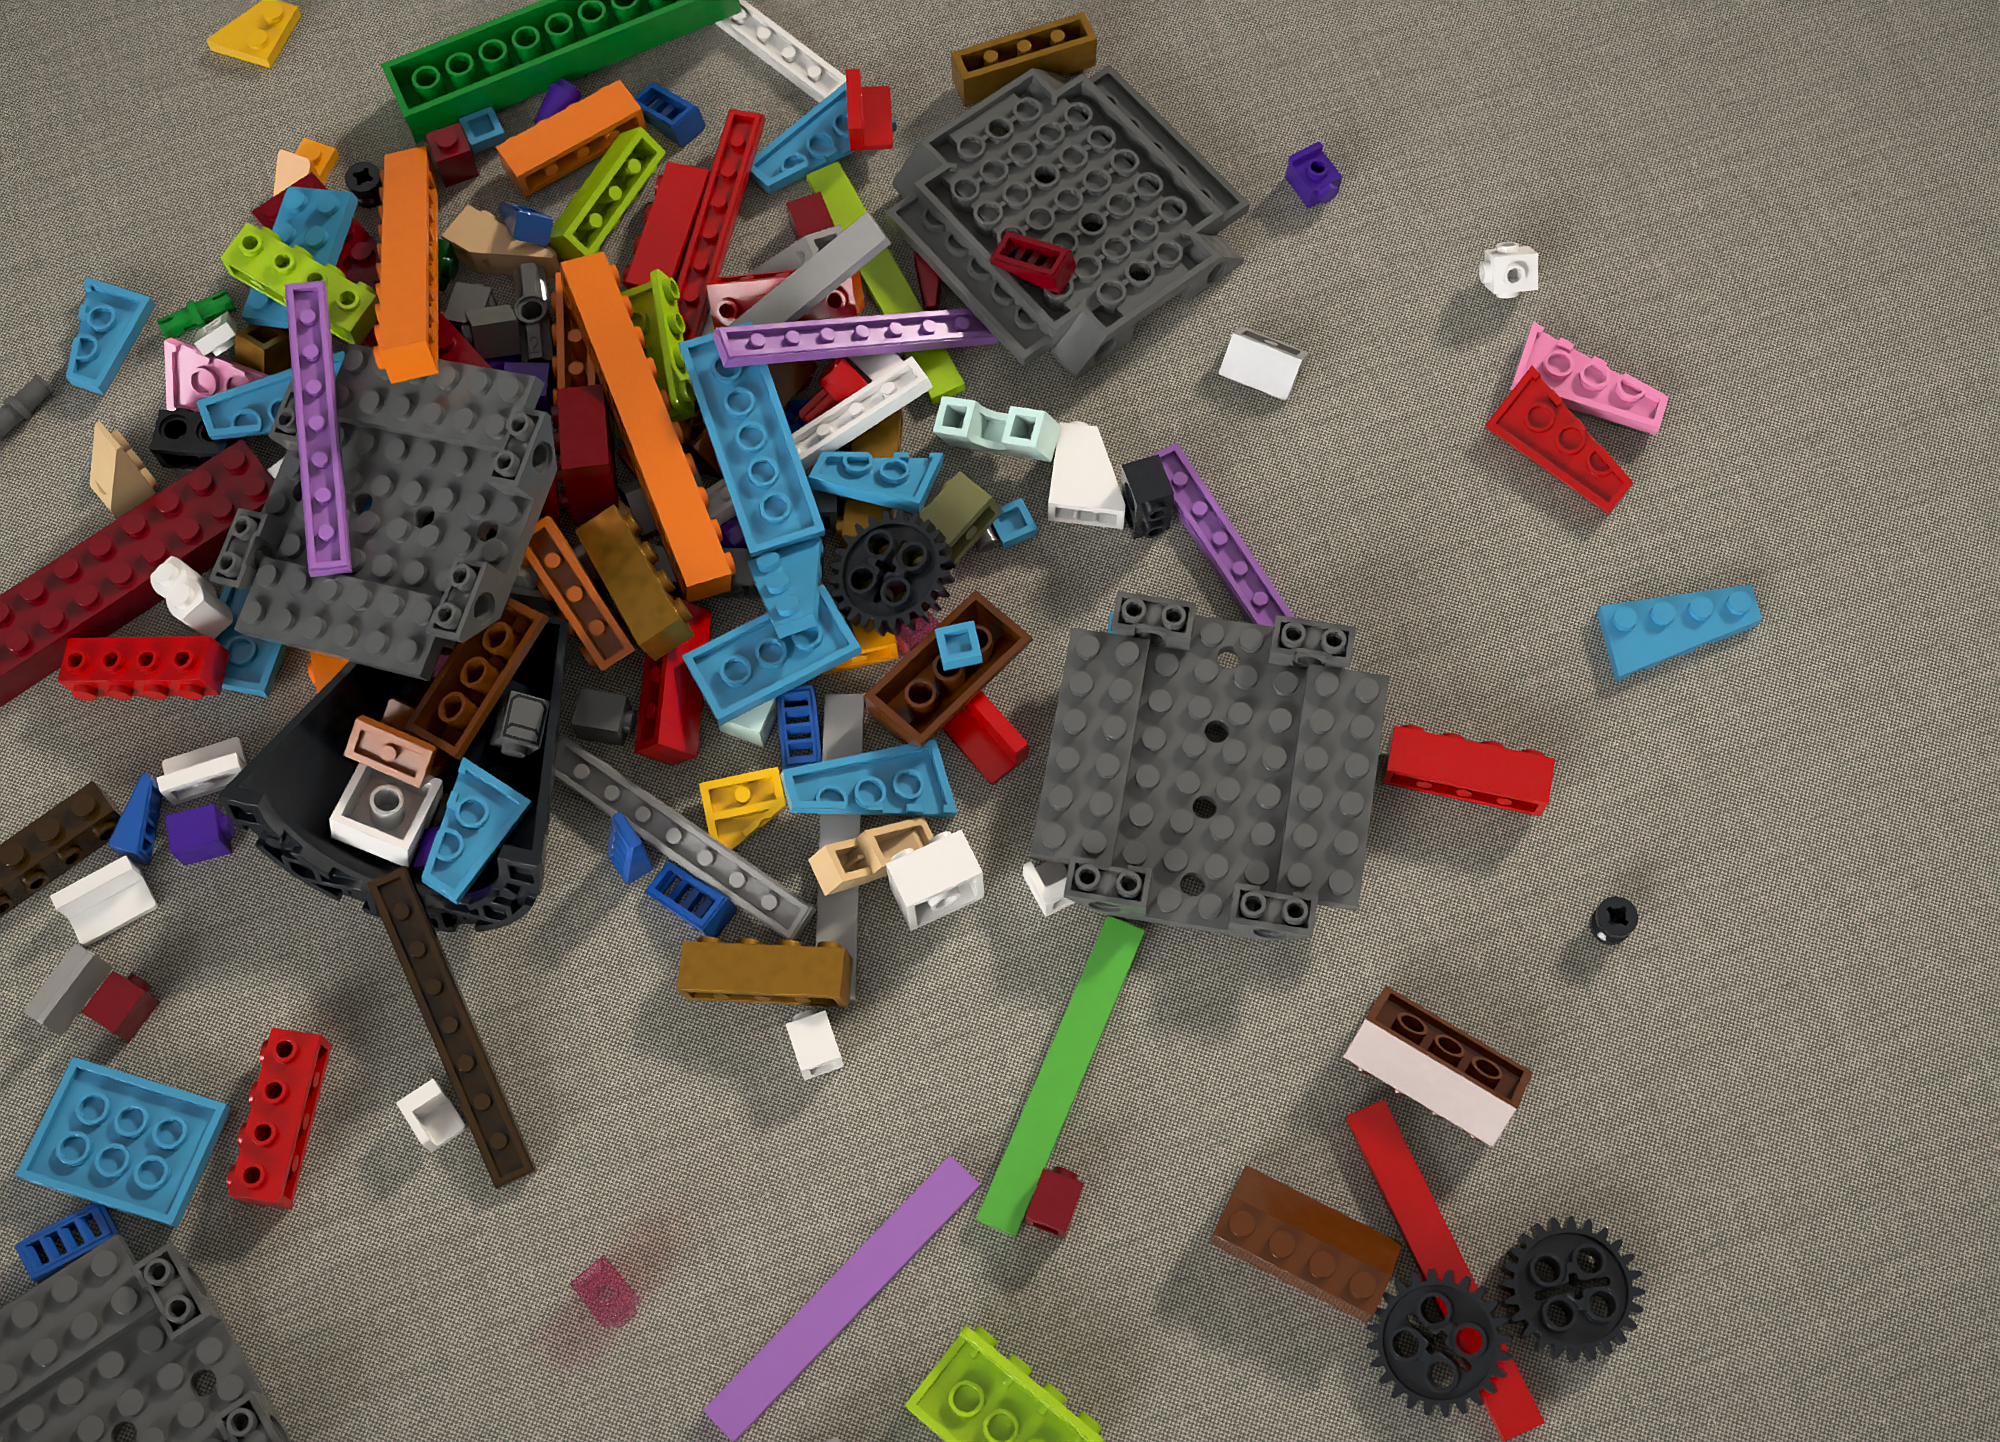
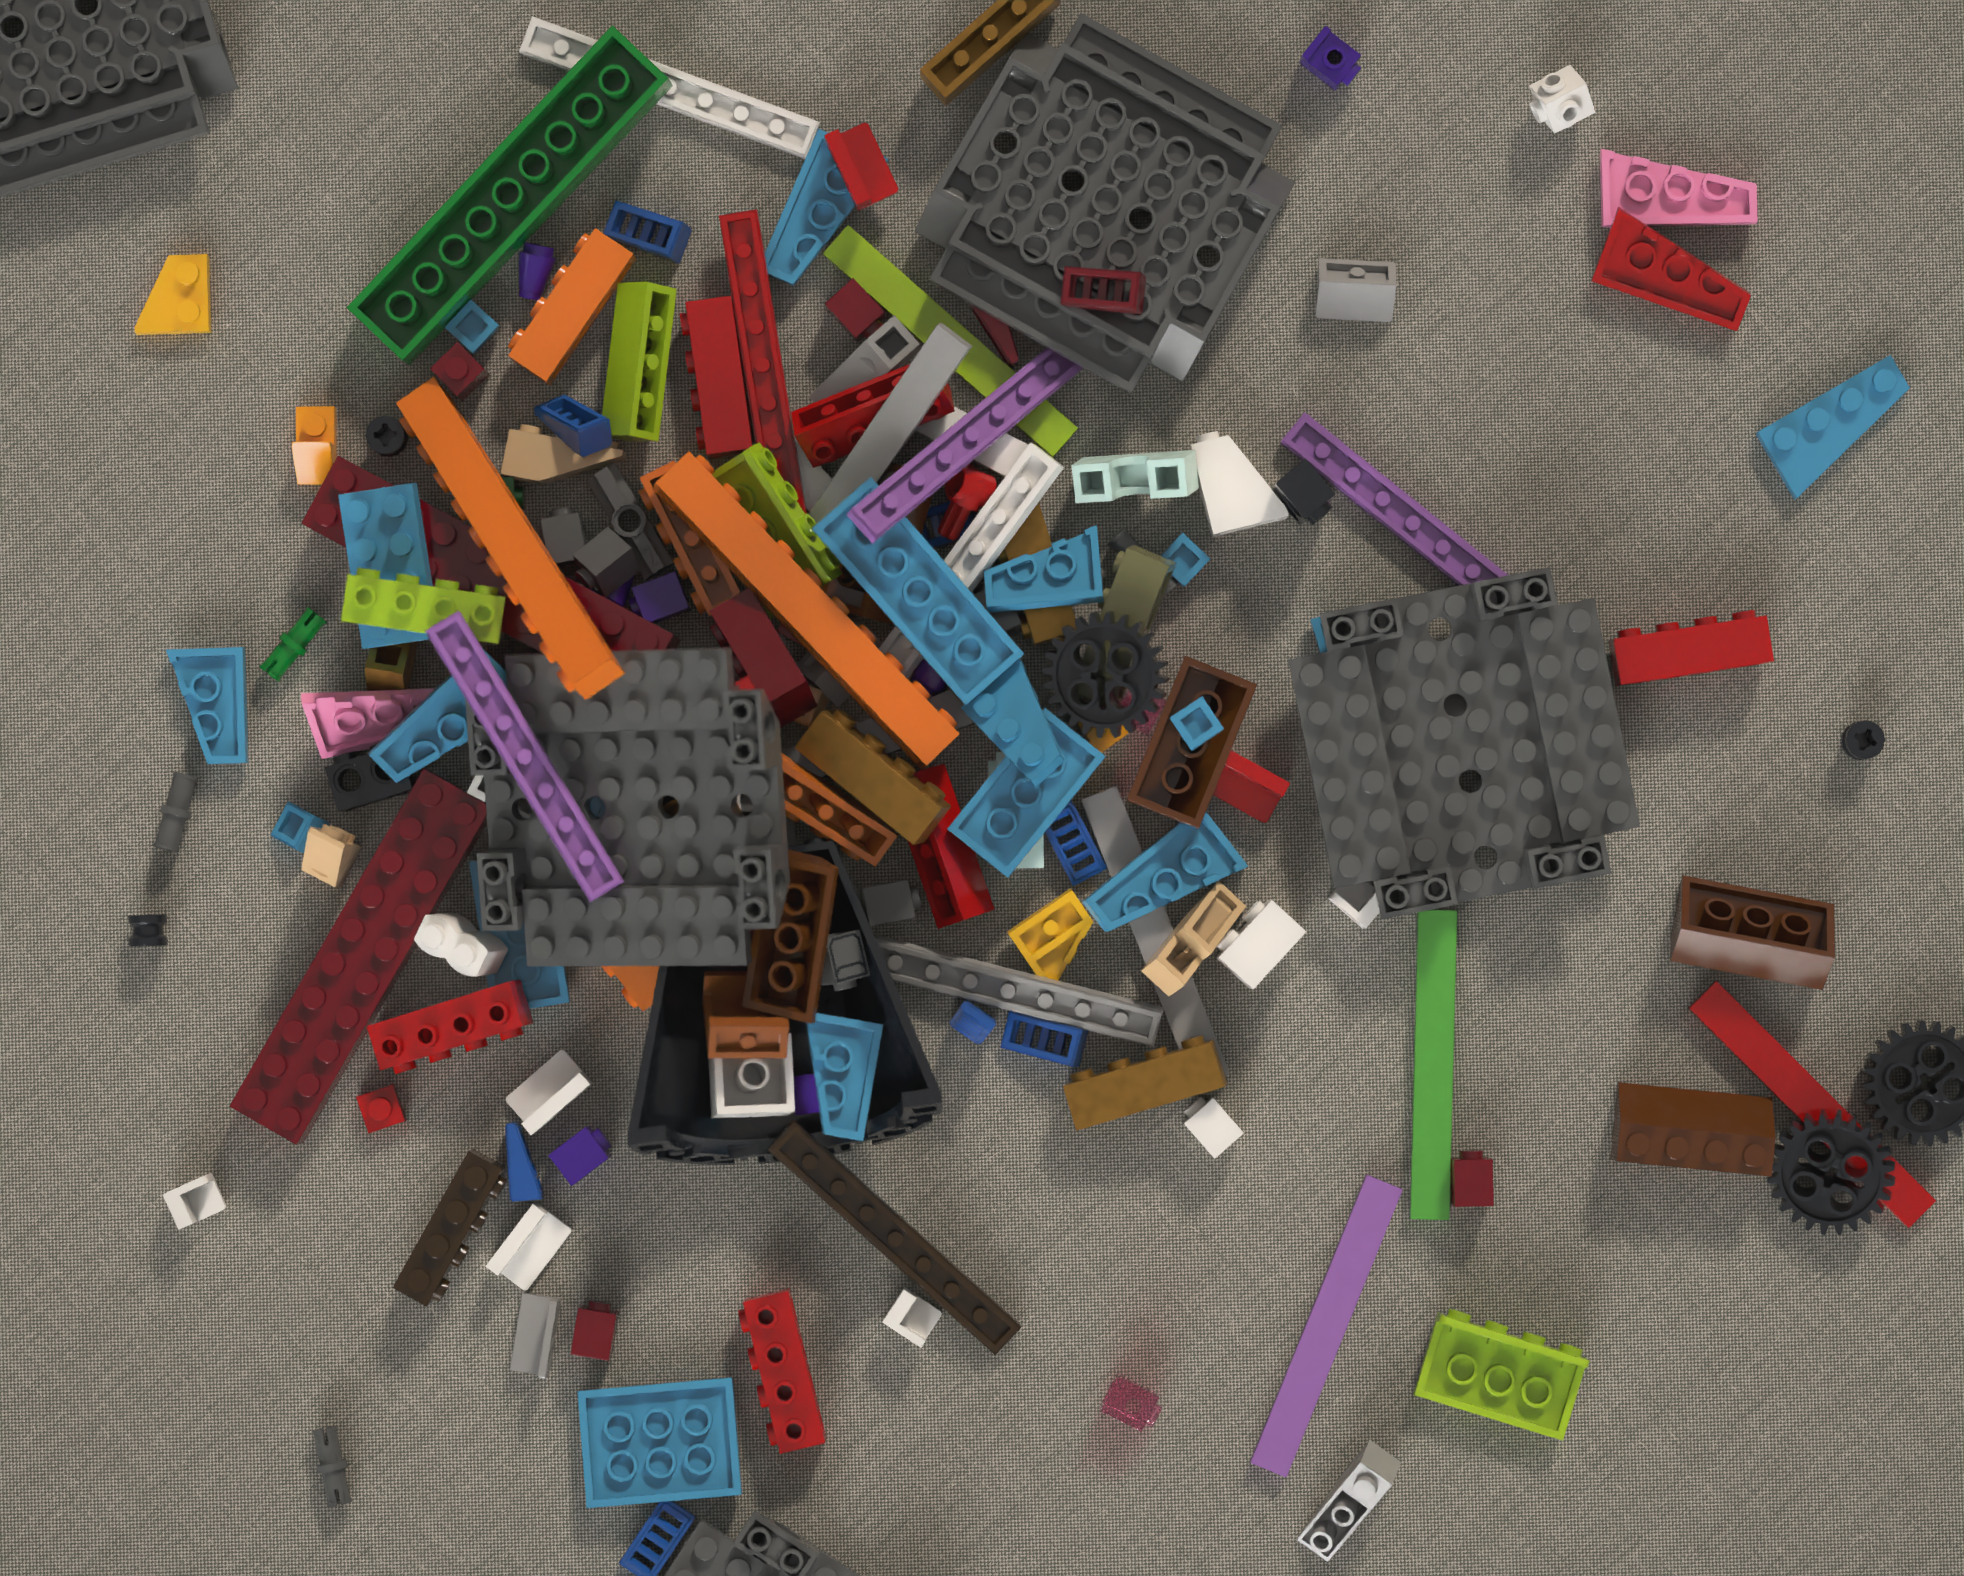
camera: 20 degrees left, 20 degrees up
(46, 726) = (381, 1108): none -> red plate
(216, 335) = (341, 670): white plate -> none

